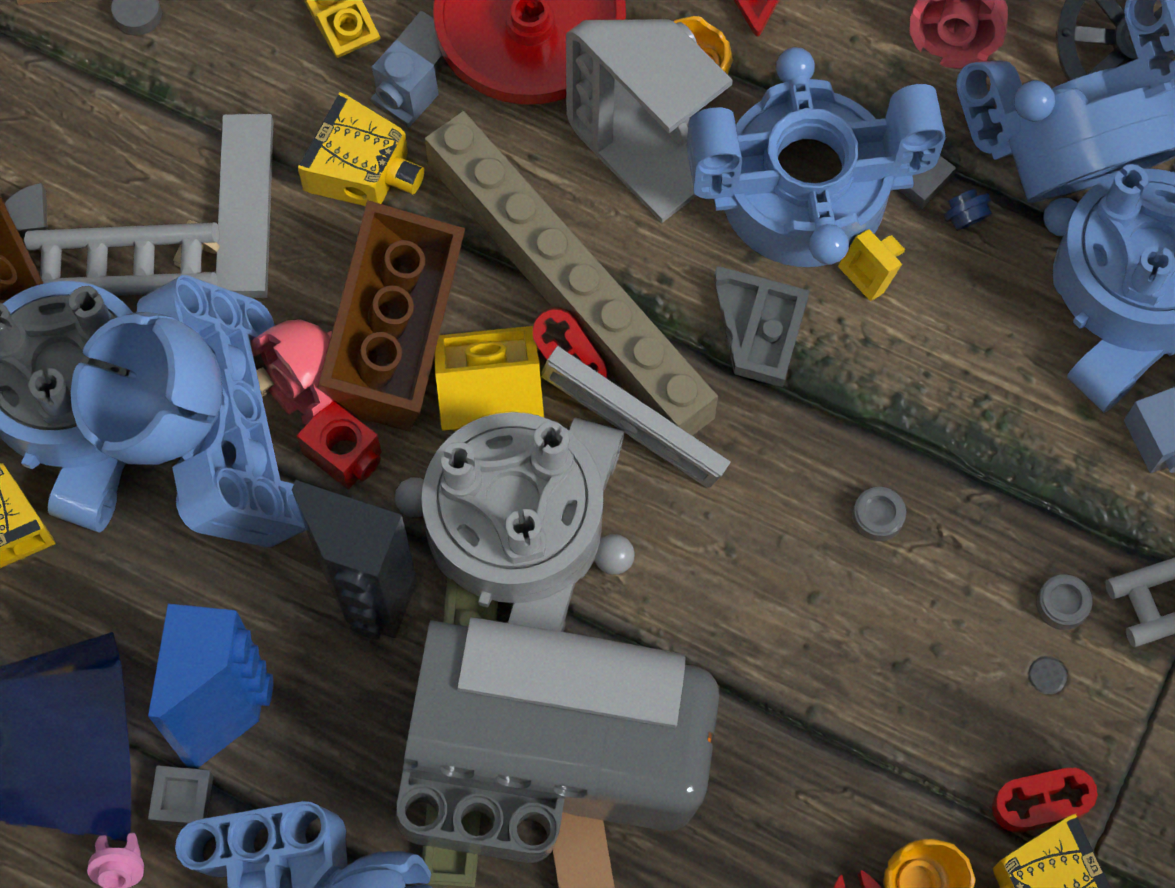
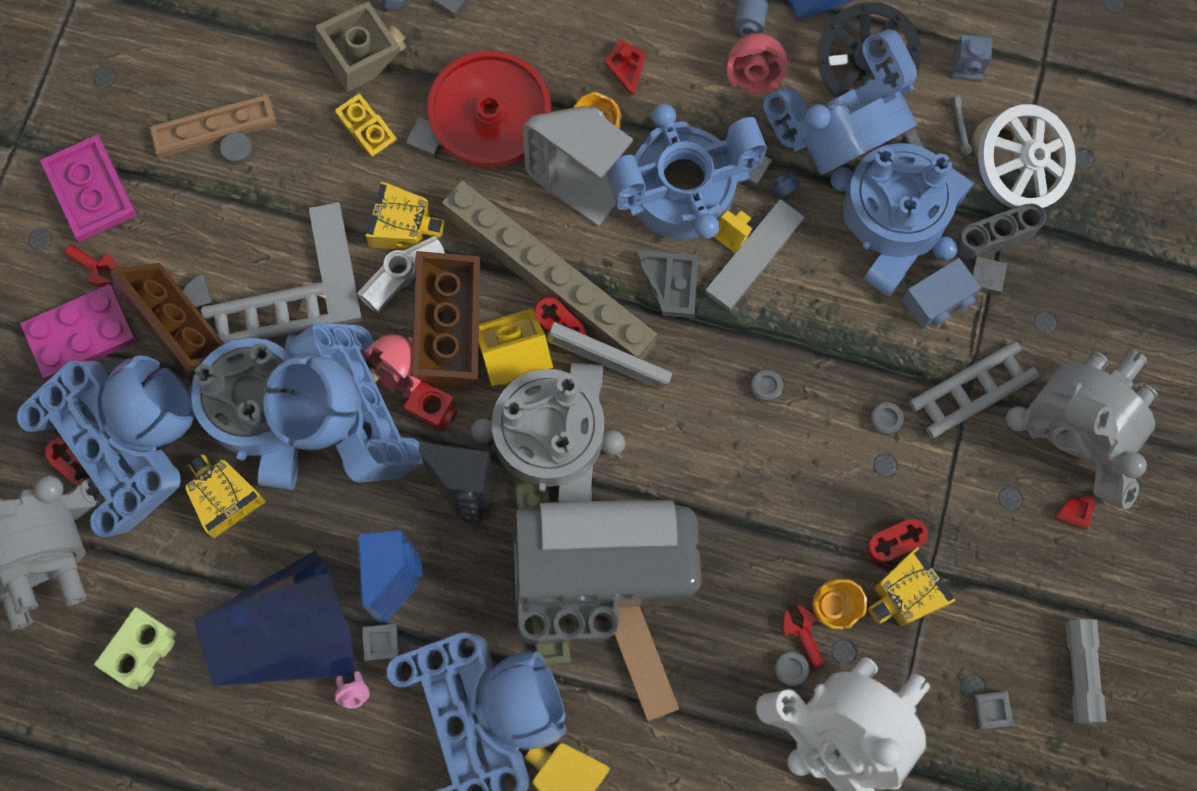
camera: 15 degrees left, 5 degrees up
(315, 247) = (385, 283): none -> white piece
(403, 83) = (419, 167): sand blue brick -> none
(899, 308) = (754, 255): none -> light grey tile

